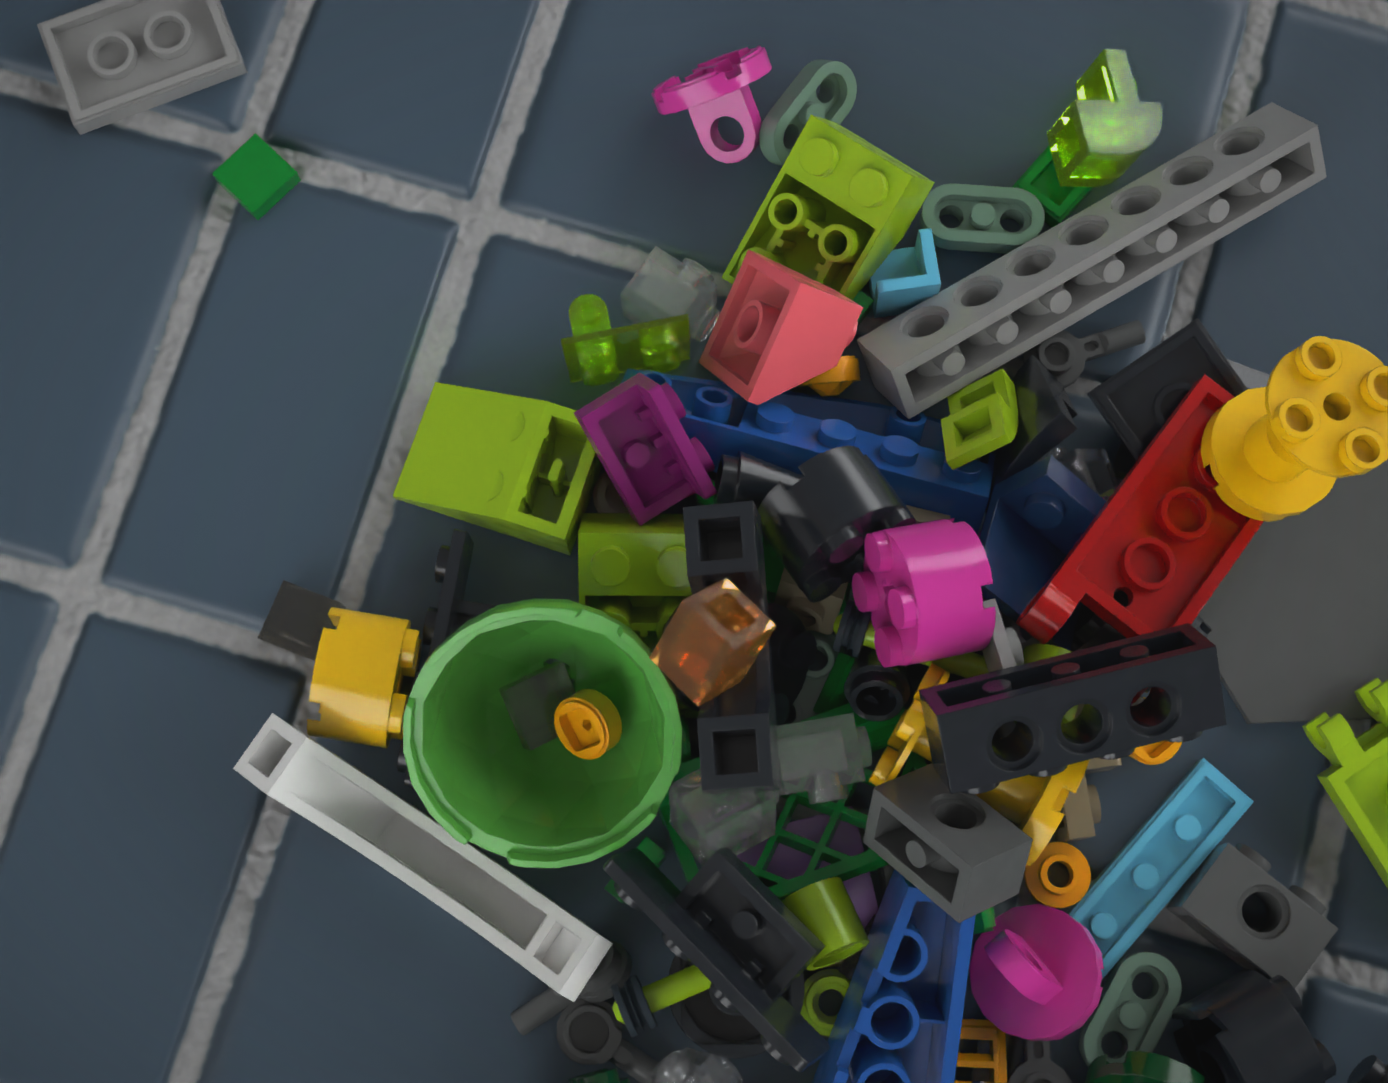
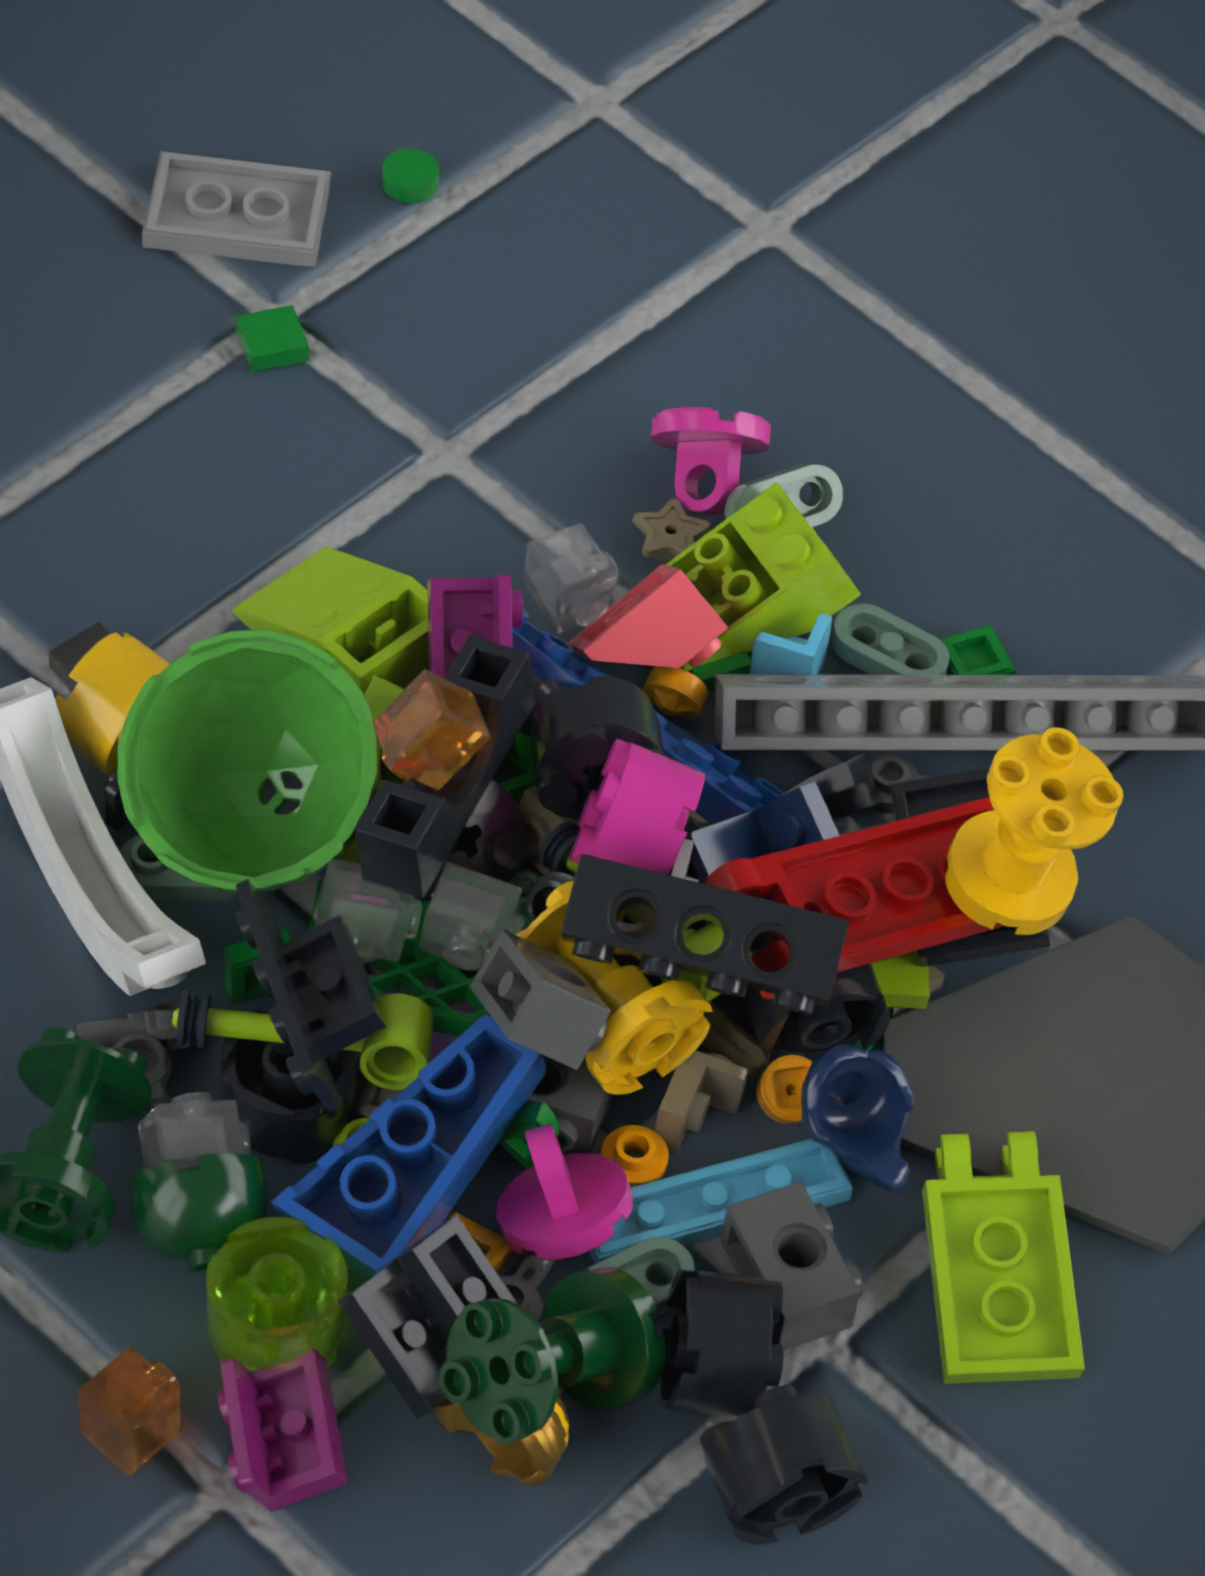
camera: 20 degrees right, 25 degrees down
(533, 703) = (261, 789): clear smoke tile -> none
(588, 724) = (290, 811): light orange tile -> none
(601, 353) = (537, 572): clear neon green hinge -> none
(724, 212) = (671, 517): none -> dark tan plate
(980, 419) = (778, 760): lime slope -> none
(1105, 126) = (1039, 629): clear neon green brick -> none
(1246, 750) = (859, 1111): none -> dark blue hair

